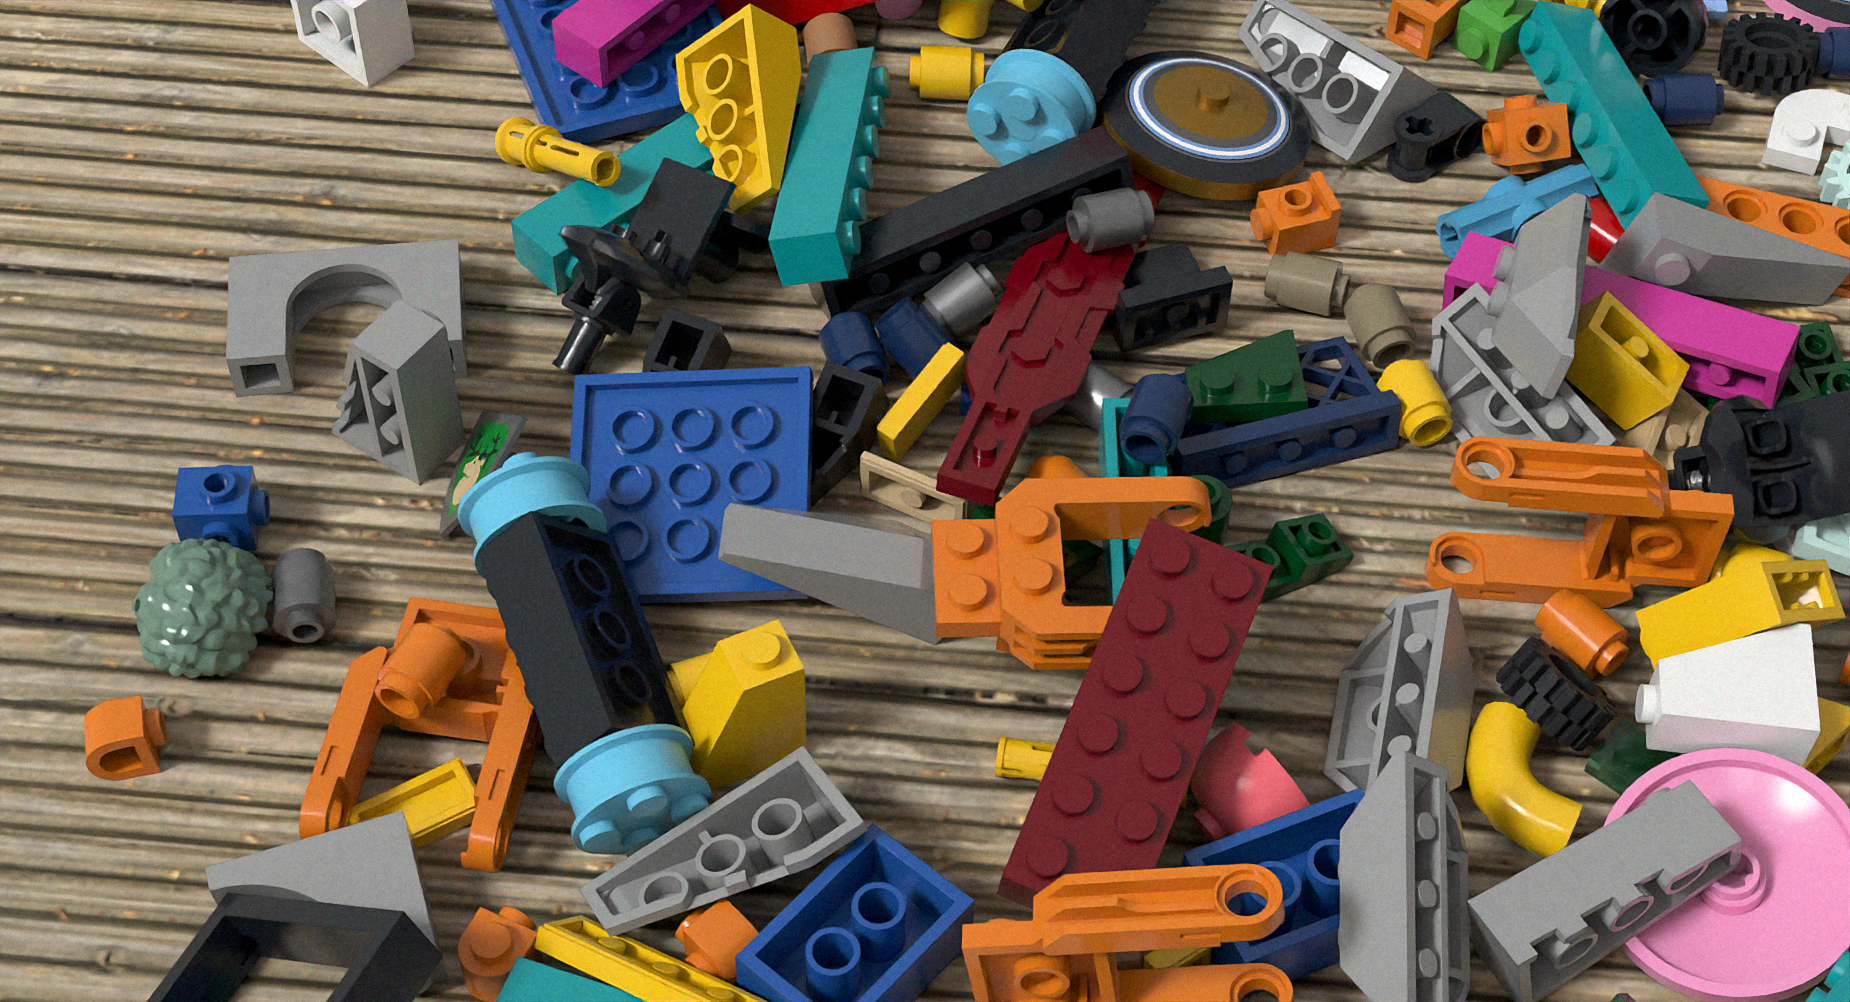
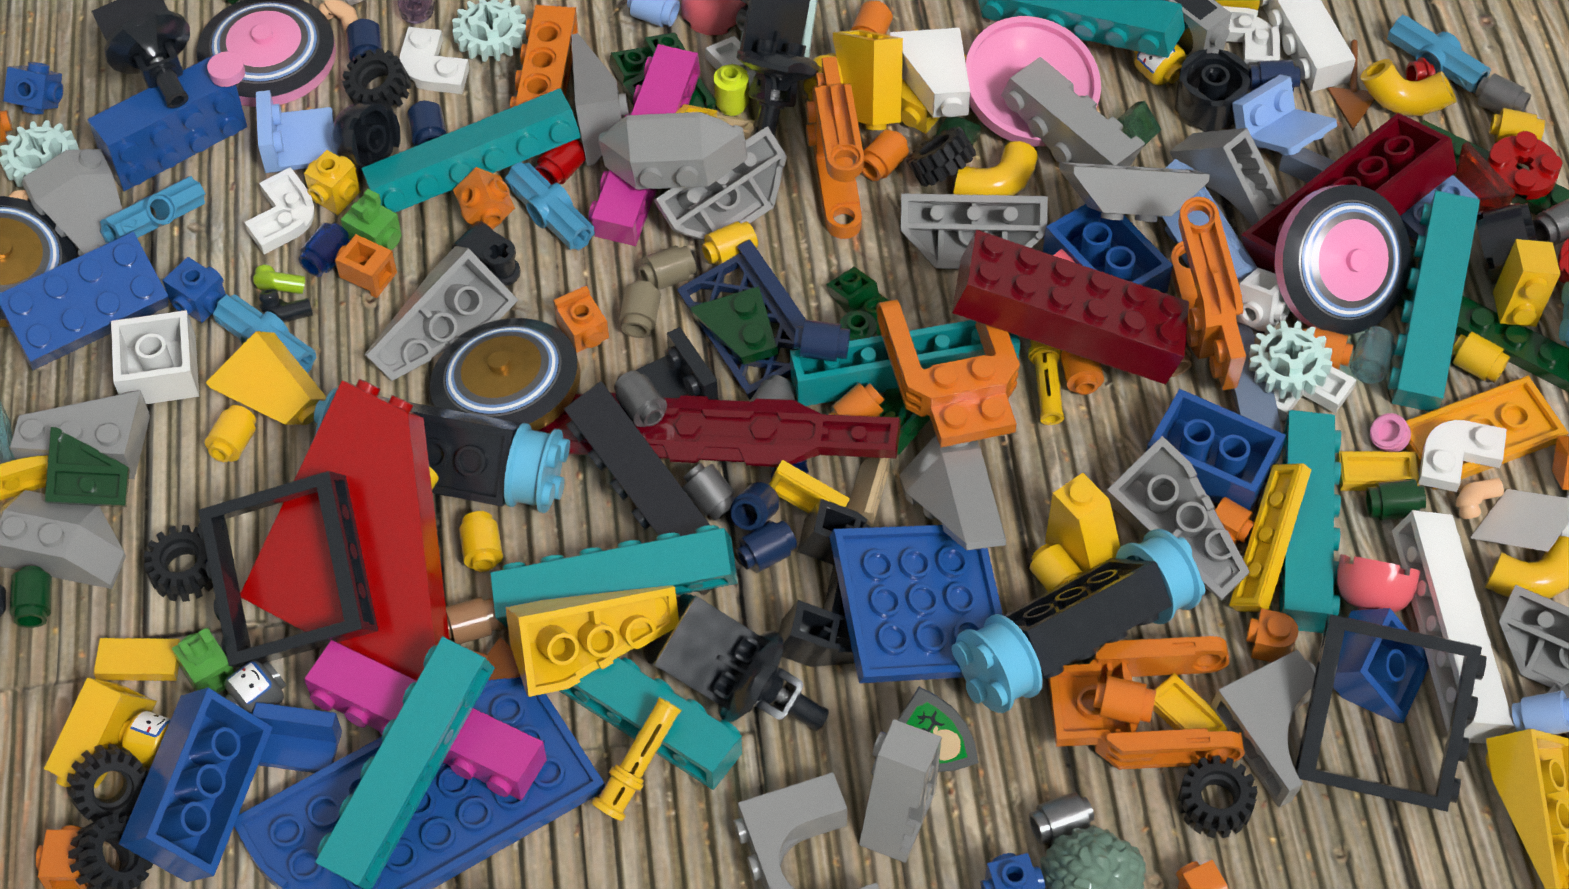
camera: 100 degrees left, 5 degrees up
(241, 774) = (1225, 776): none -> black tyre

